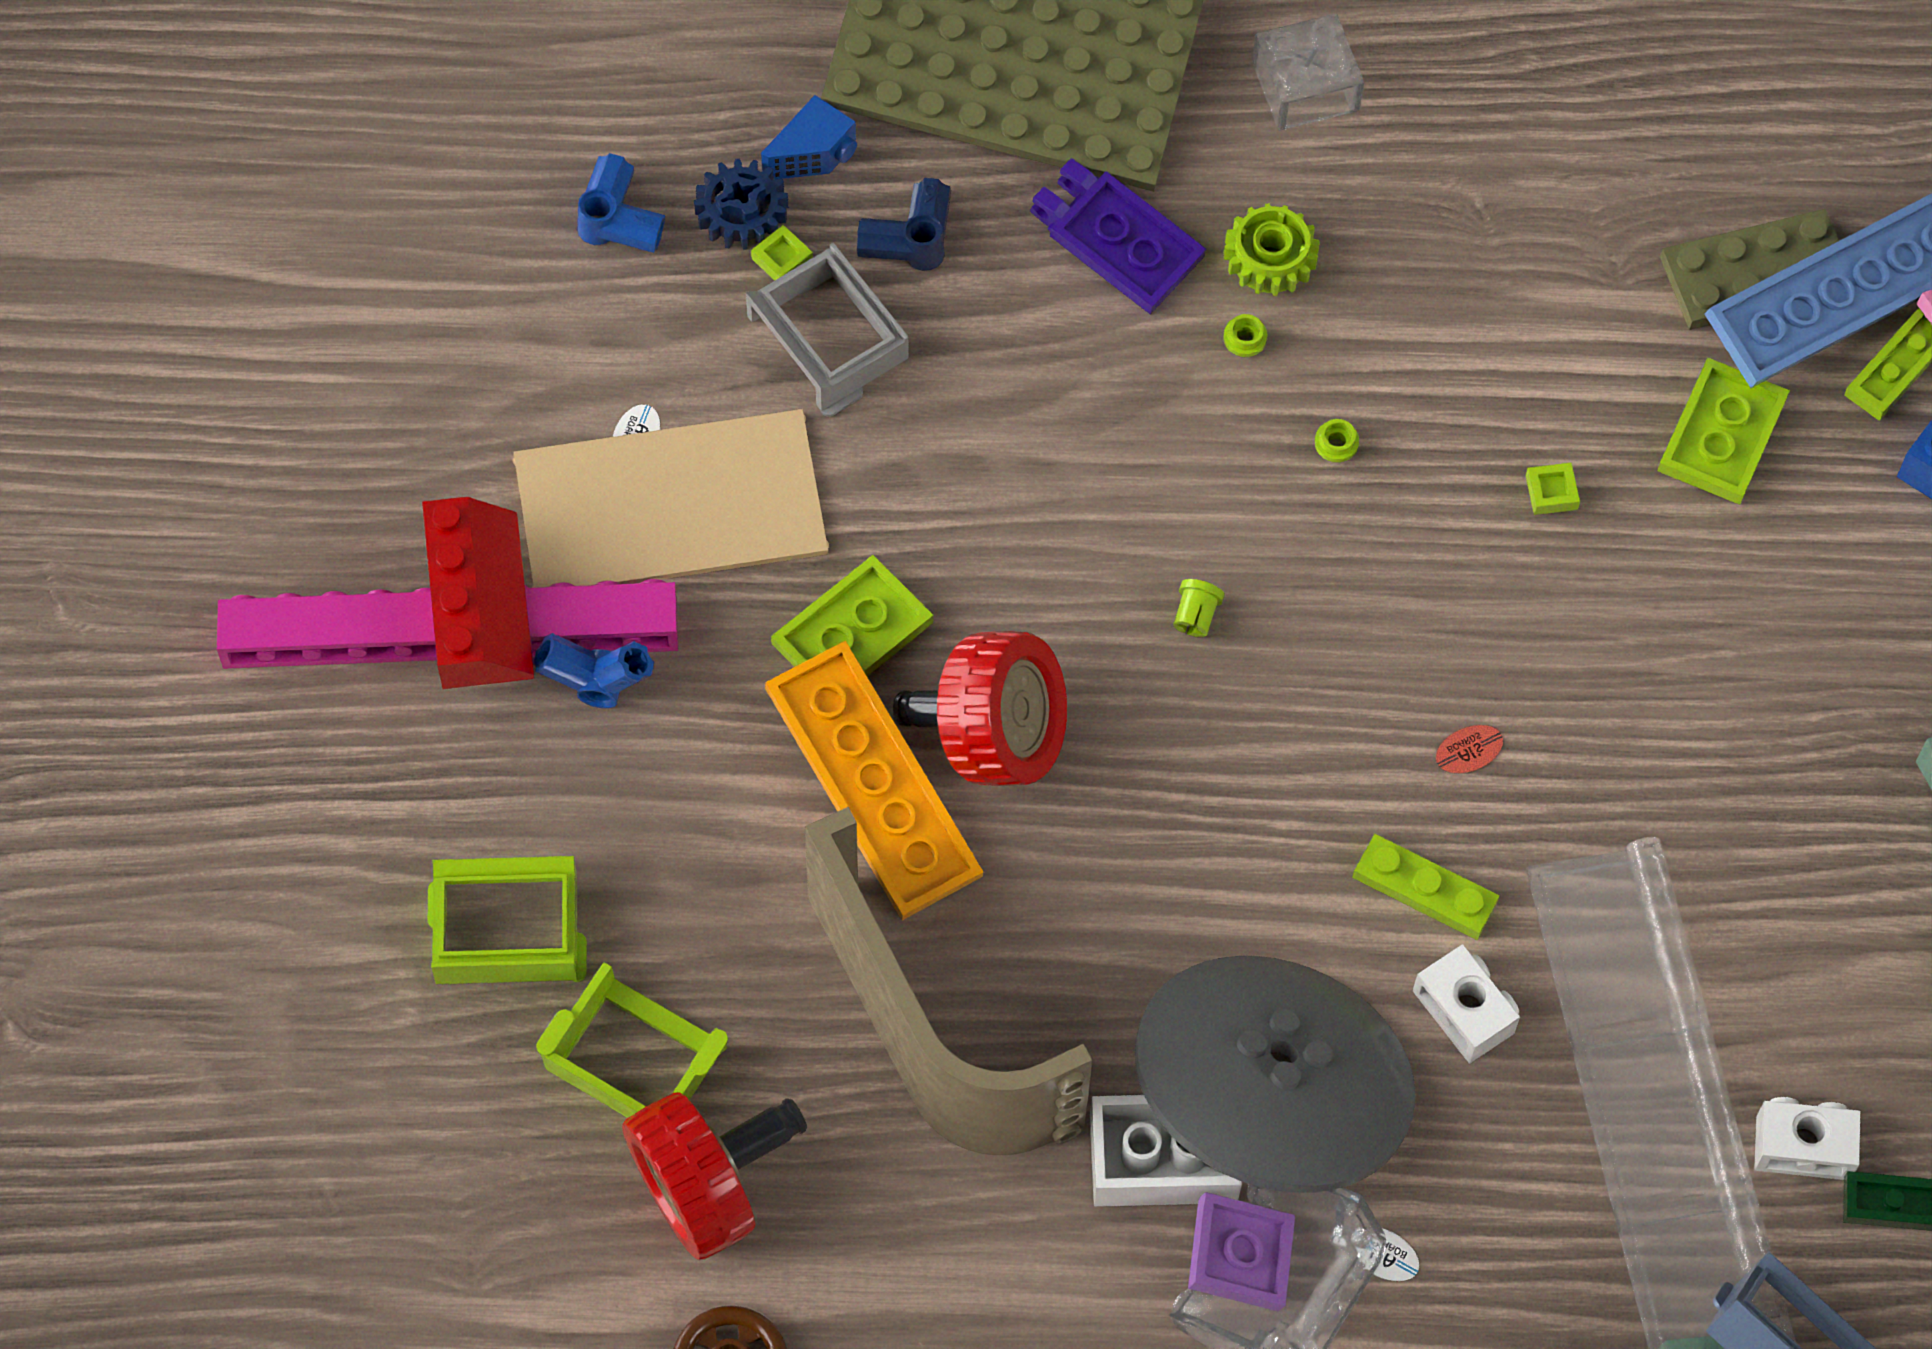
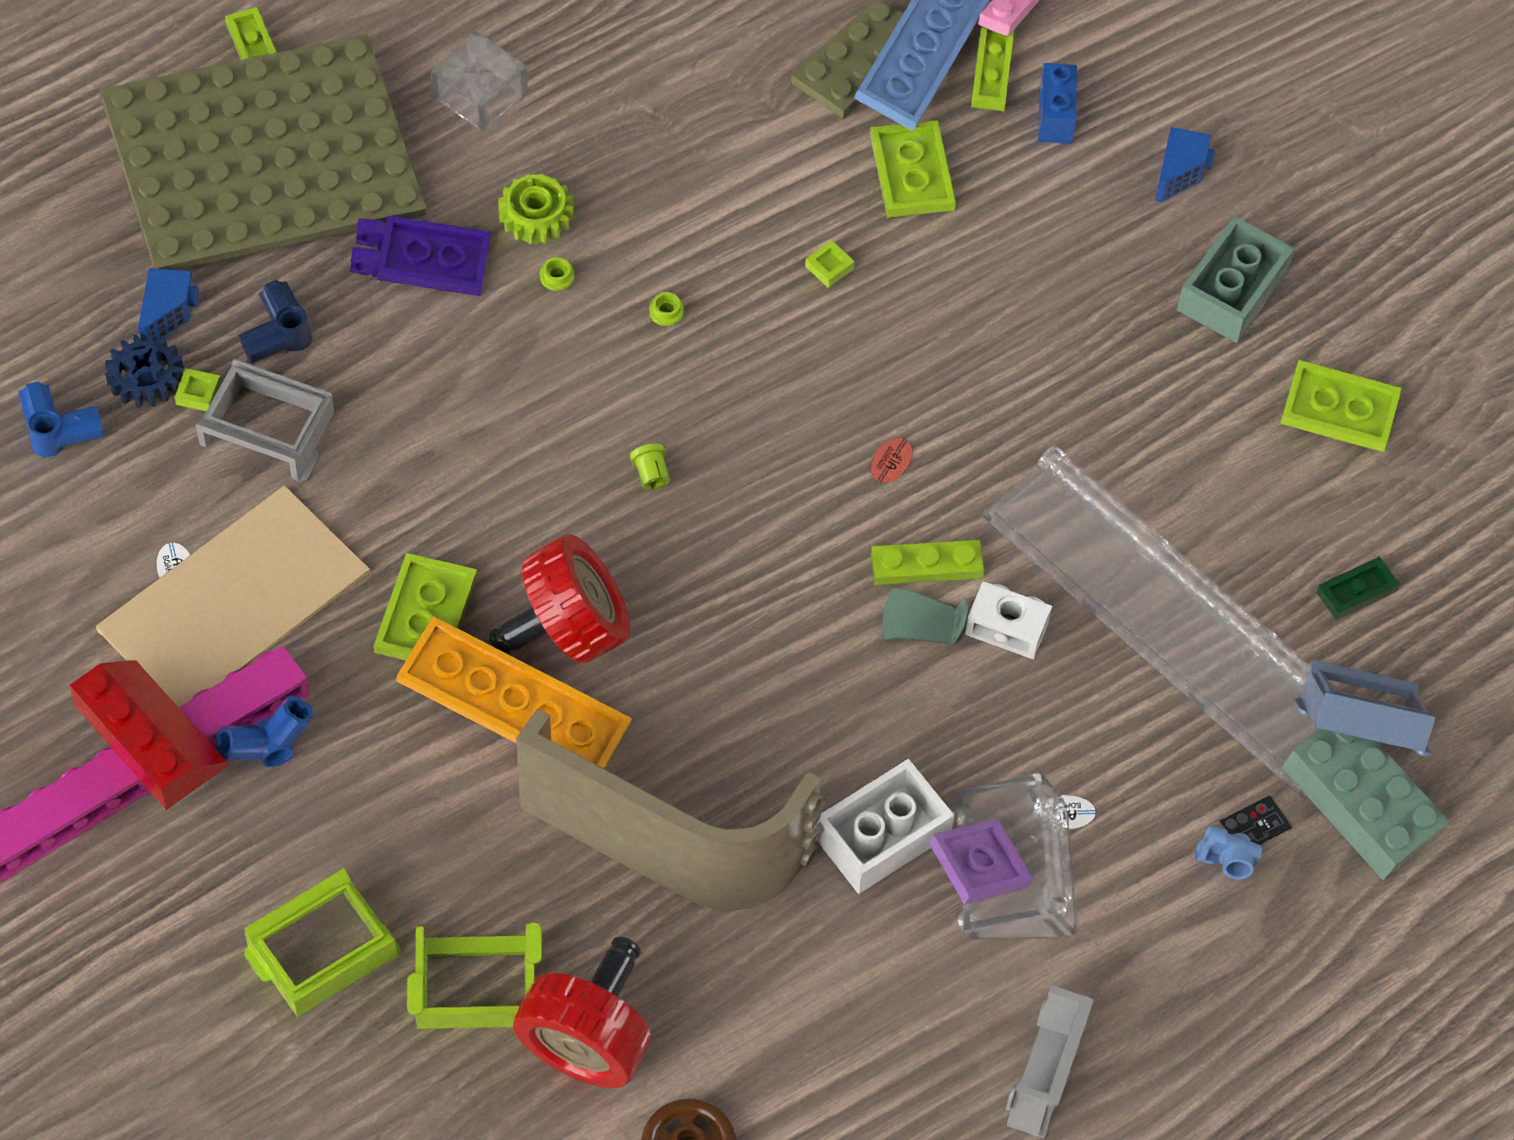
camera: 35 degrees left, 5 degrees down
(1265, 1120) = (961, 756): dark grey dish -> none
(1373, 944) = (922, 618): none -> sand green piece
(1783, 1151) = (1268, 595): white brick -> none

